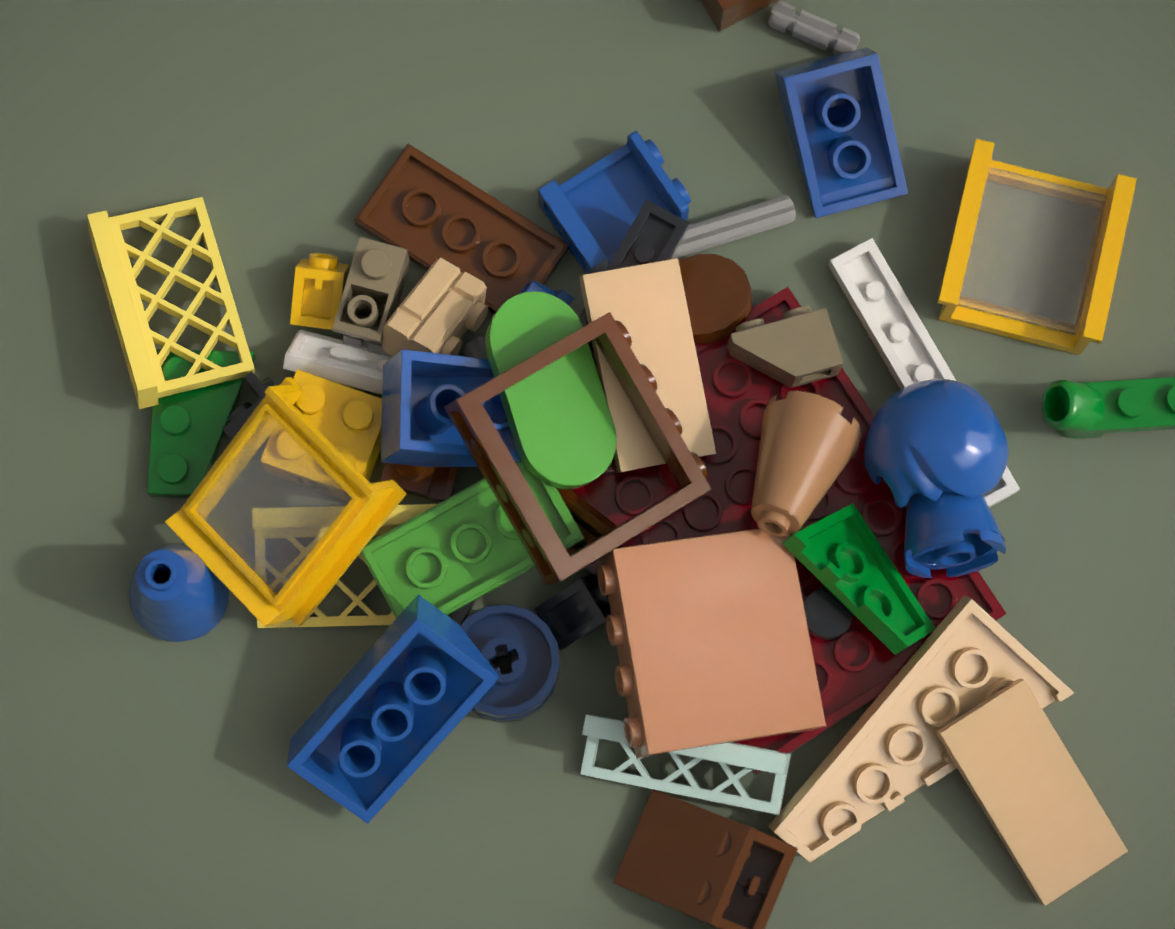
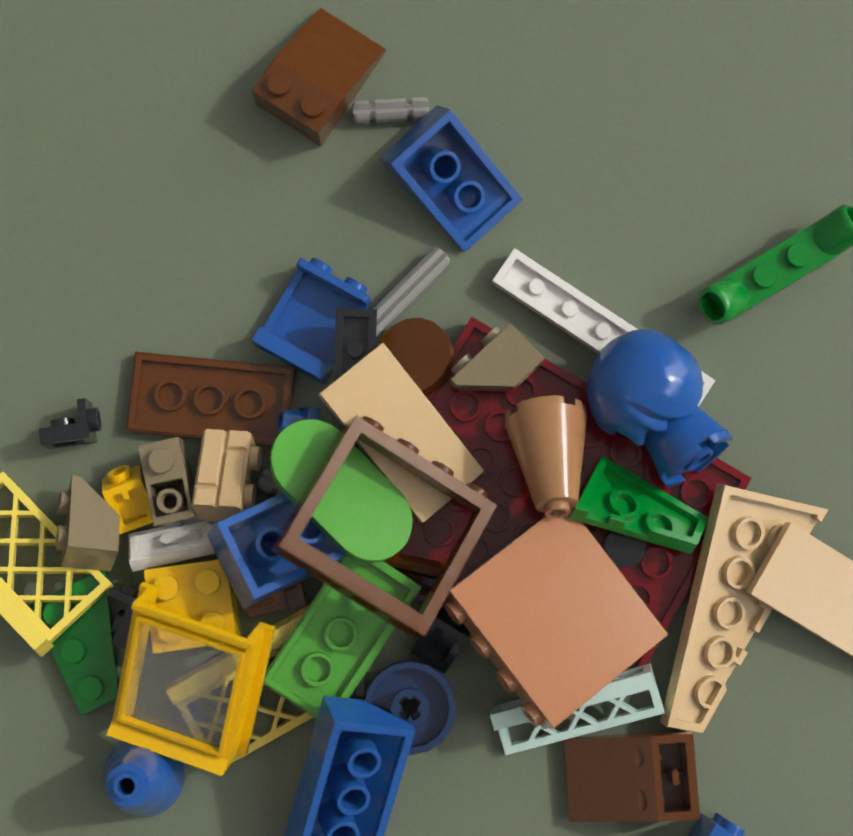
camera: 25 degrees left, 5 degrees up
(261, 300) = (89, 528): none -> dark tan slope
(292, 191) = (67, 433): none -> black bracket
(1034, 254) = (638, 197): clear piece -> none

